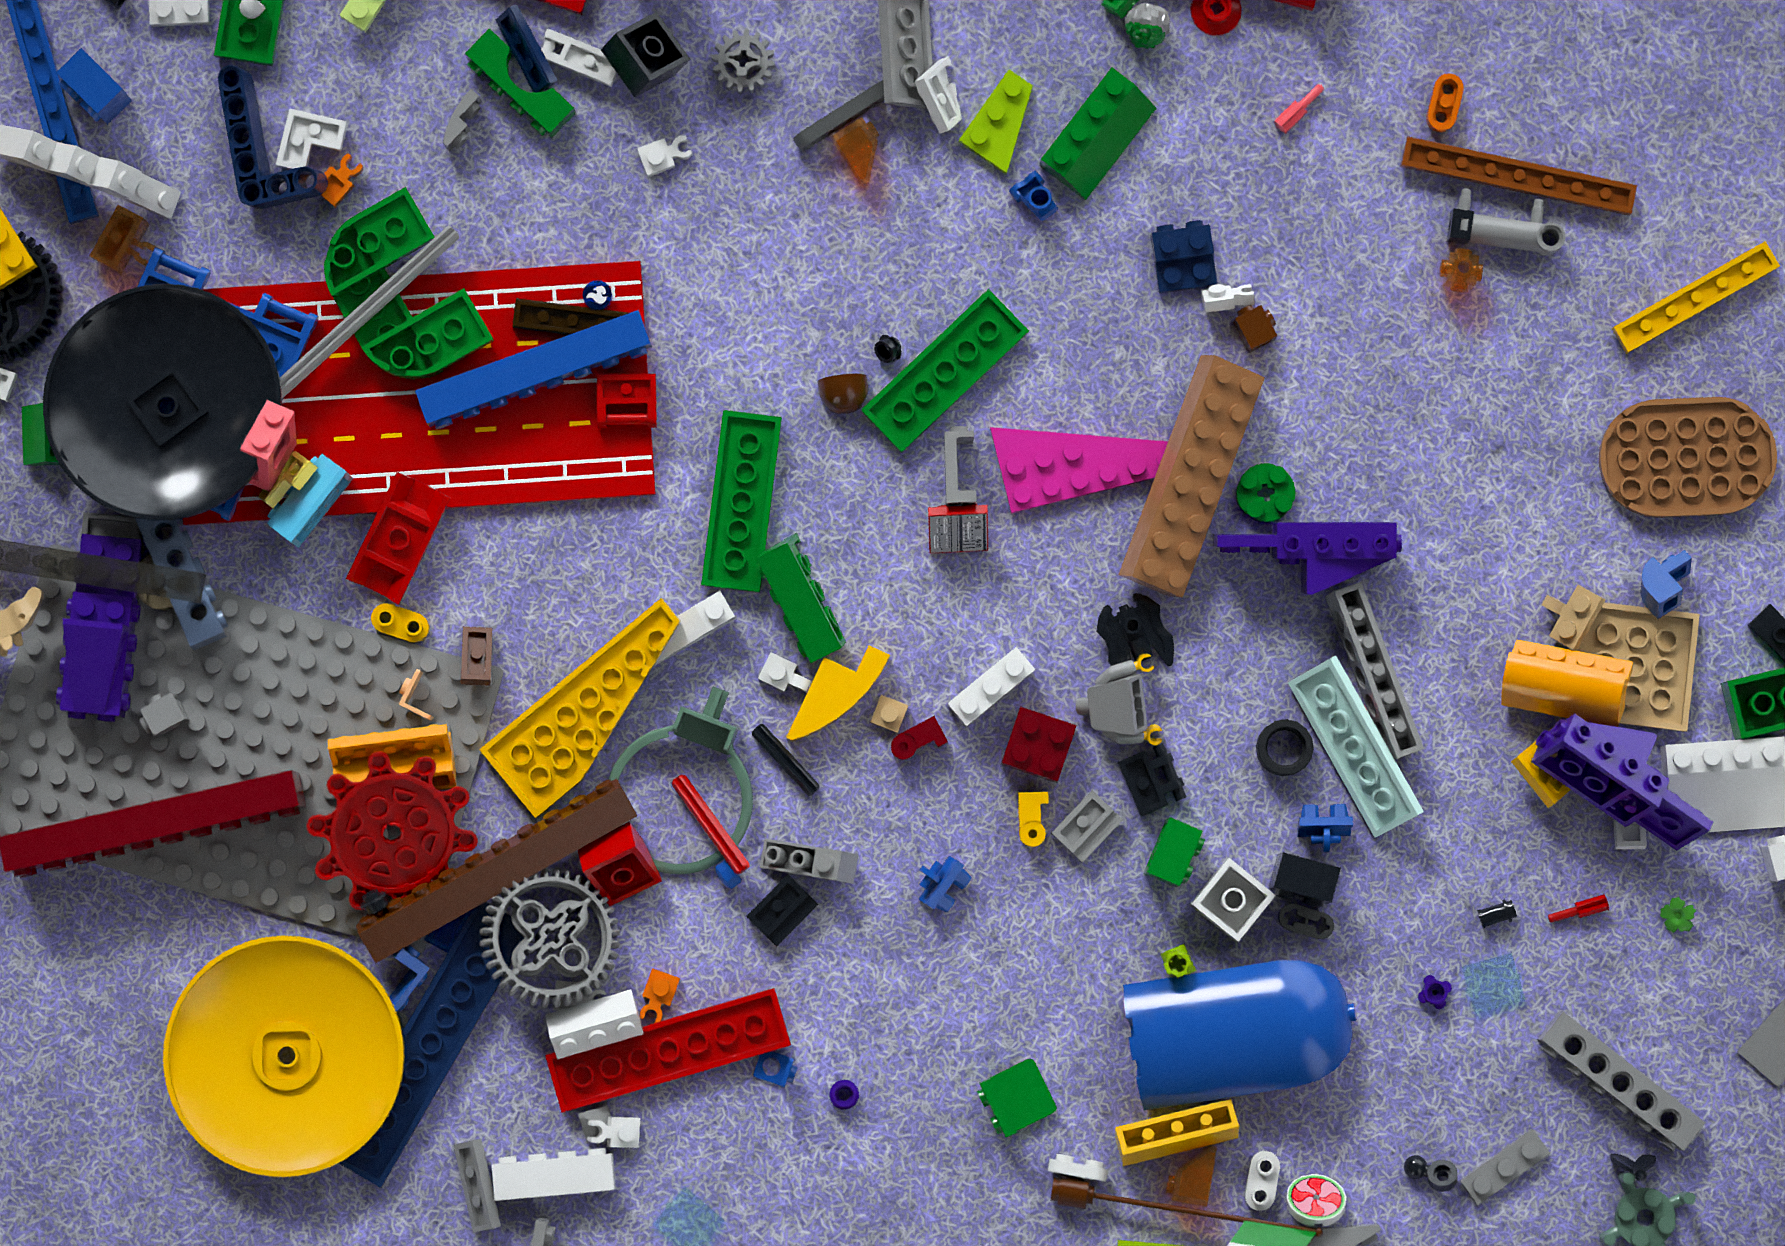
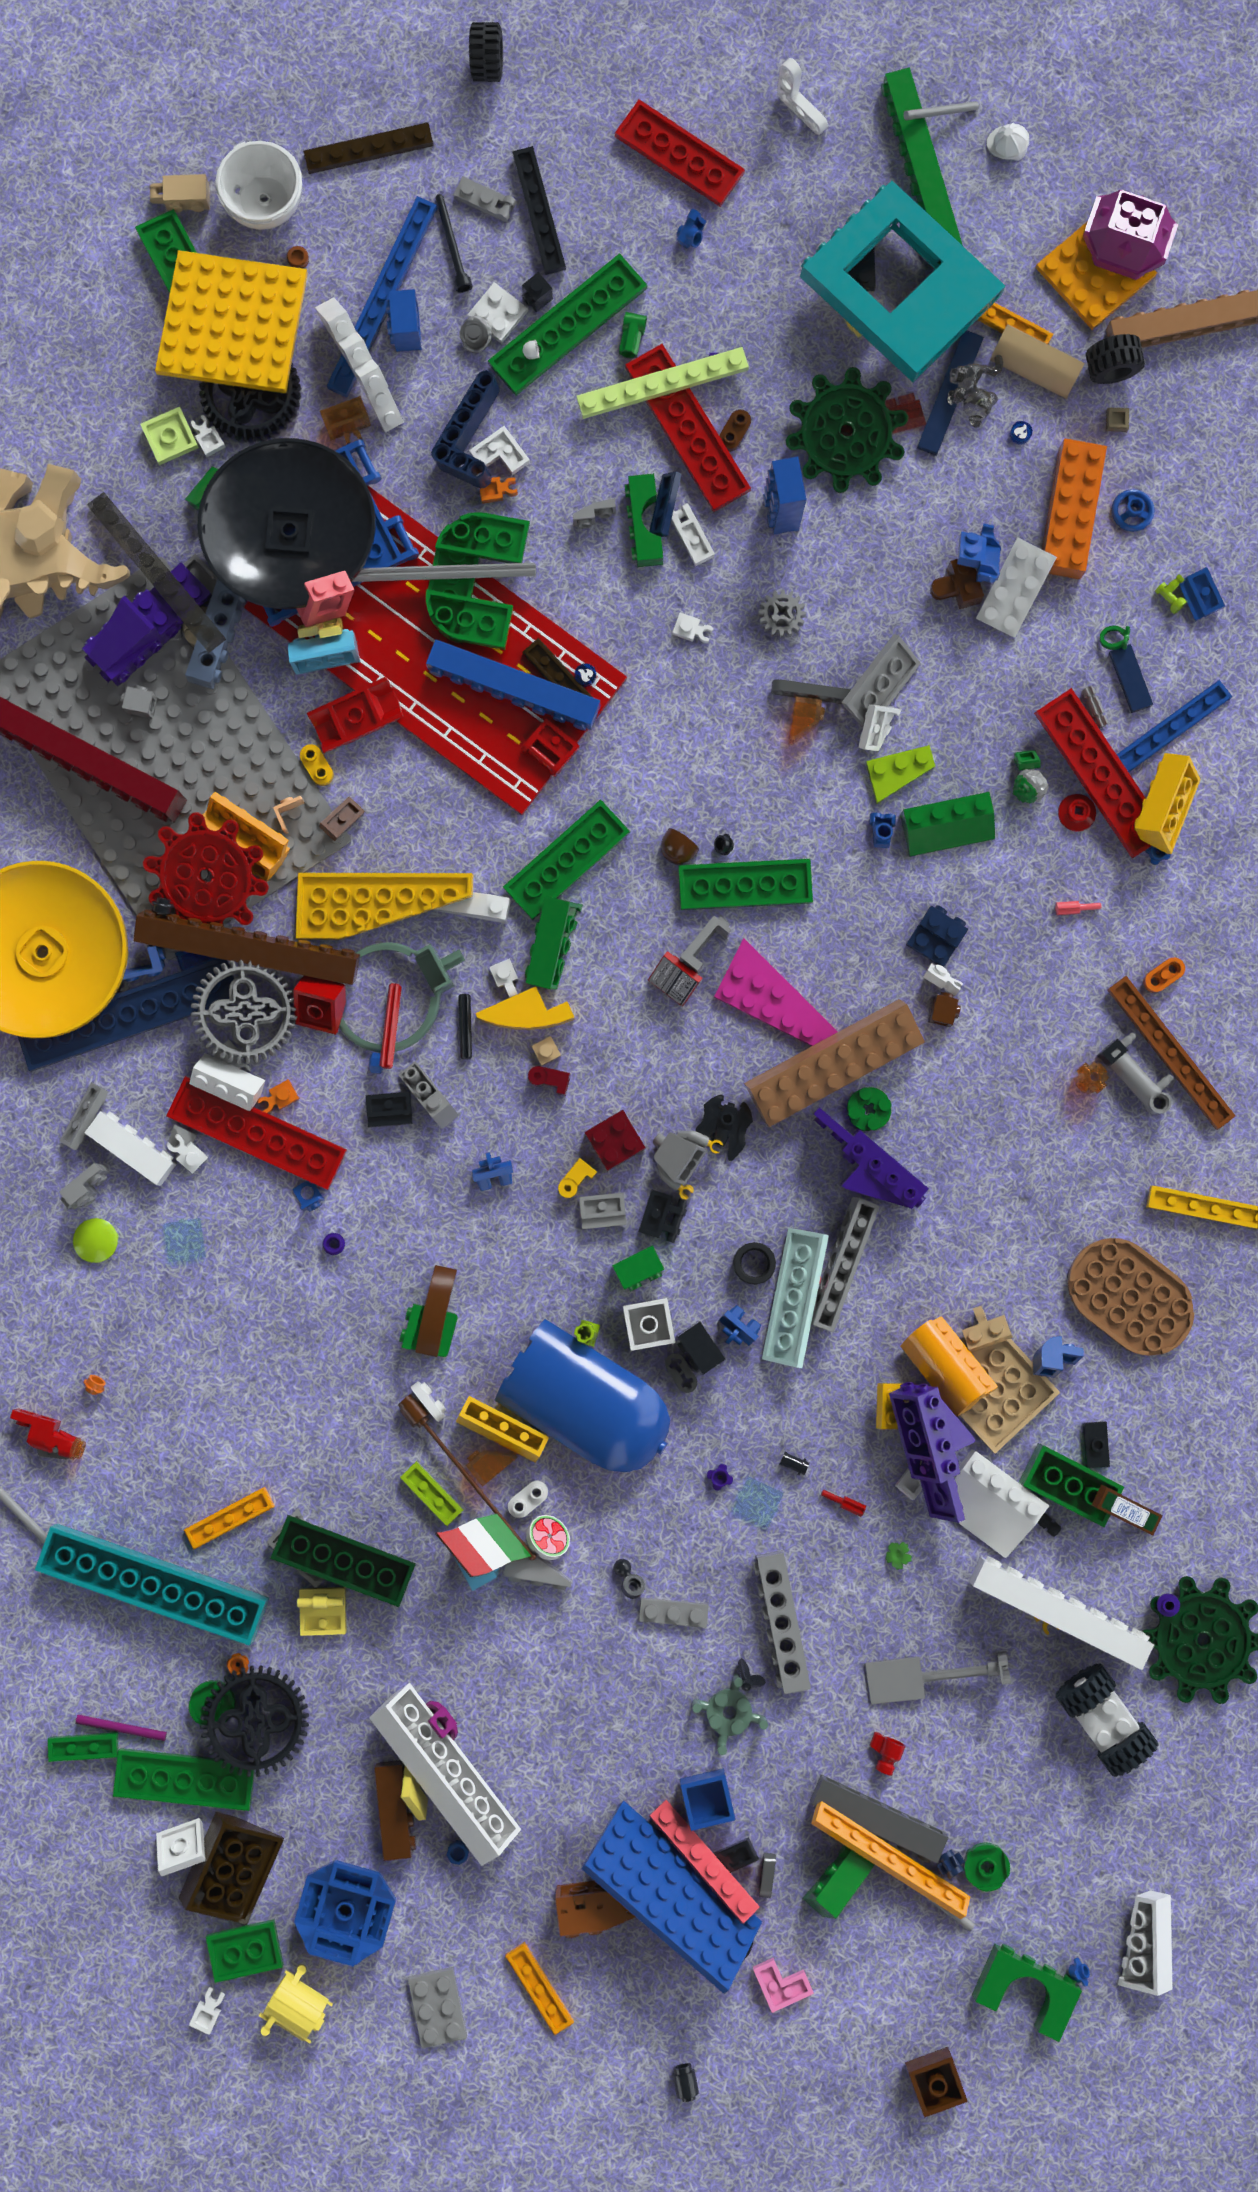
camera: 40 degrees right, 0 degrees up
(177, 38) = (475, 334): none -> light grey hair
(645, 54) = (729, 561): black brick -> none
(991, 687) = (616, 1084): white brick -> none
(1007, 1072) = (435, 1311): none -> reddish brown slope

